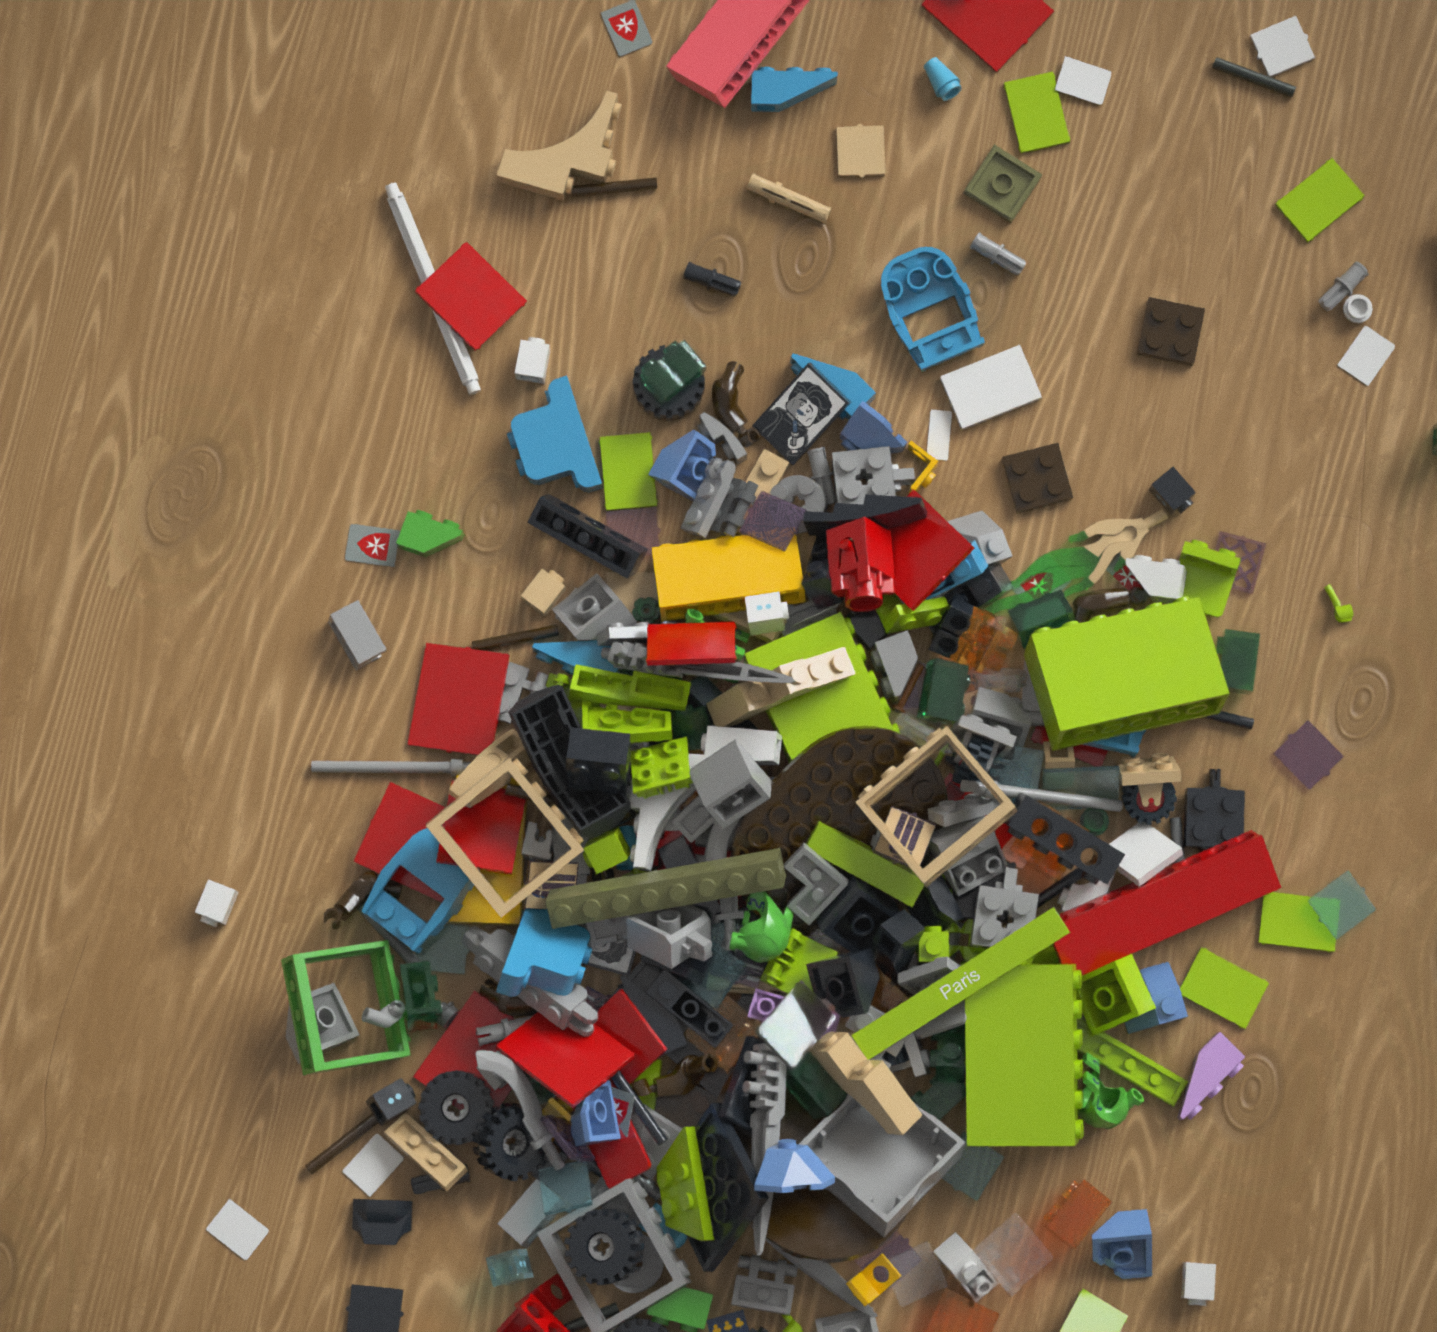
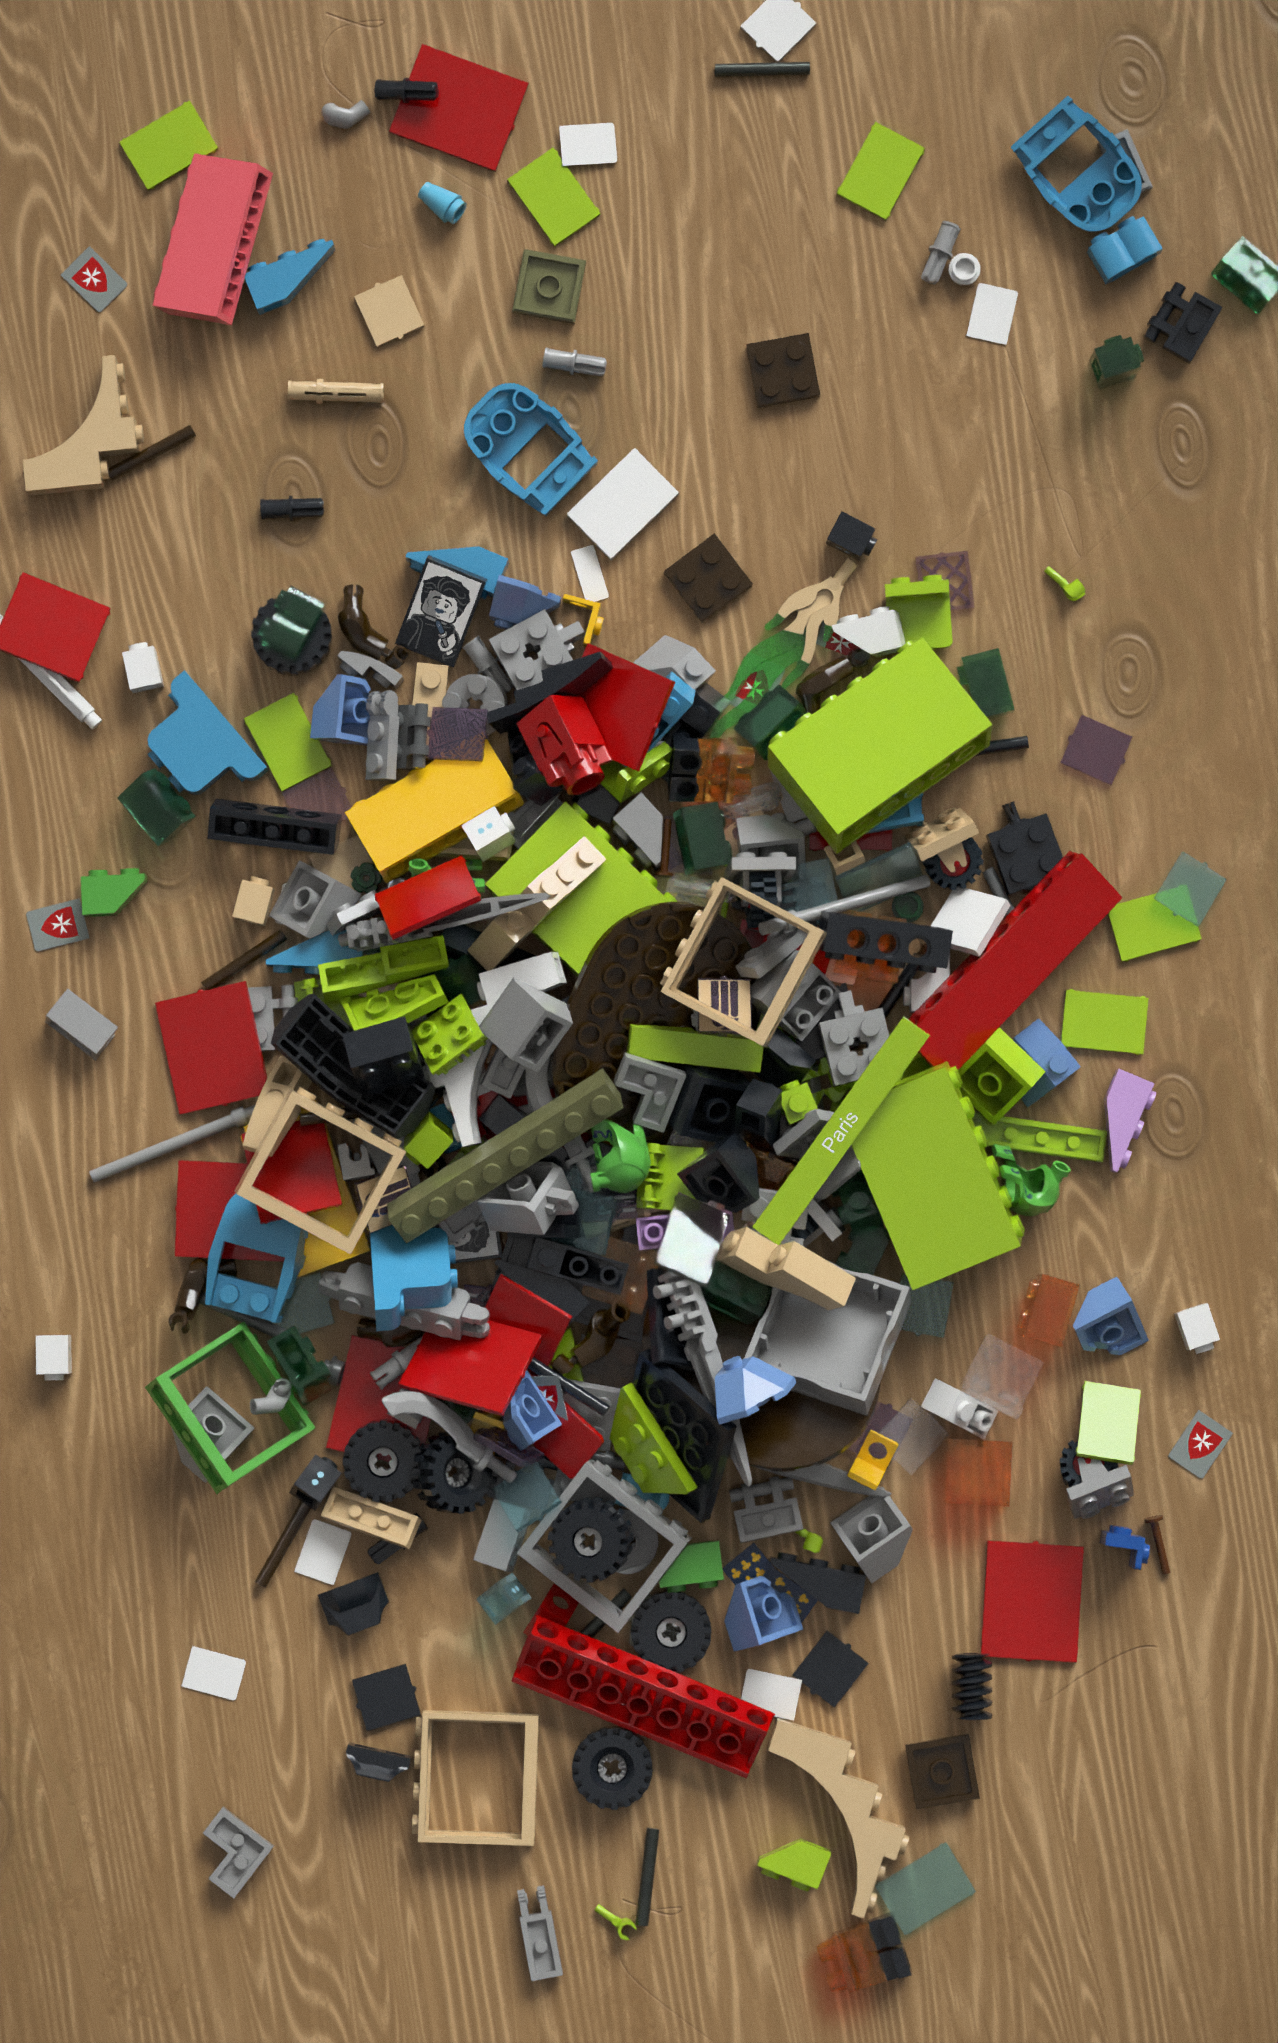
camera: 25 degrees left, 5 degrees up
(496, 479) = (156, 806): none -> clear green brick

